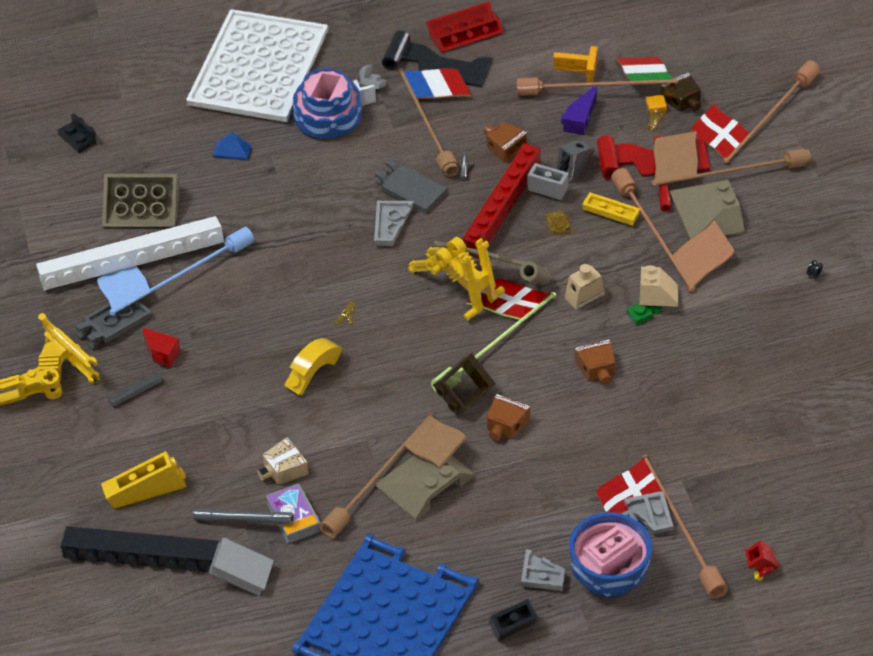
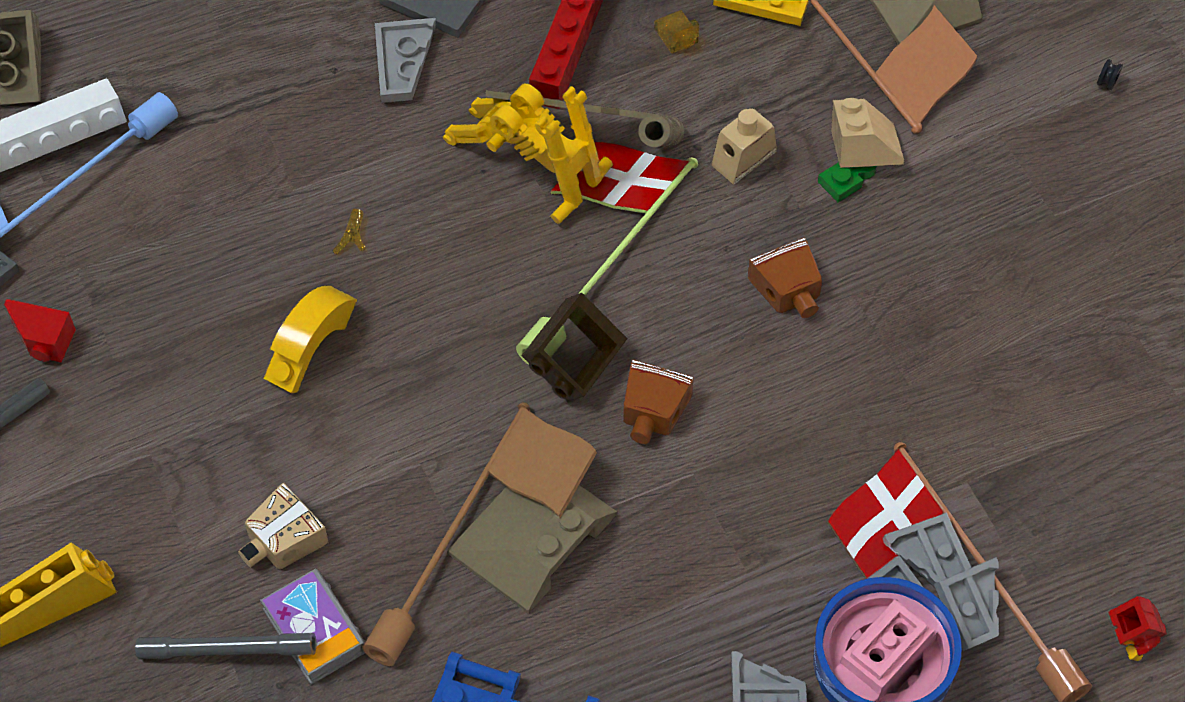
camera: 10 degrees left, 10 degrees up
(668, 538) = (973, 602): none -> light grey wing

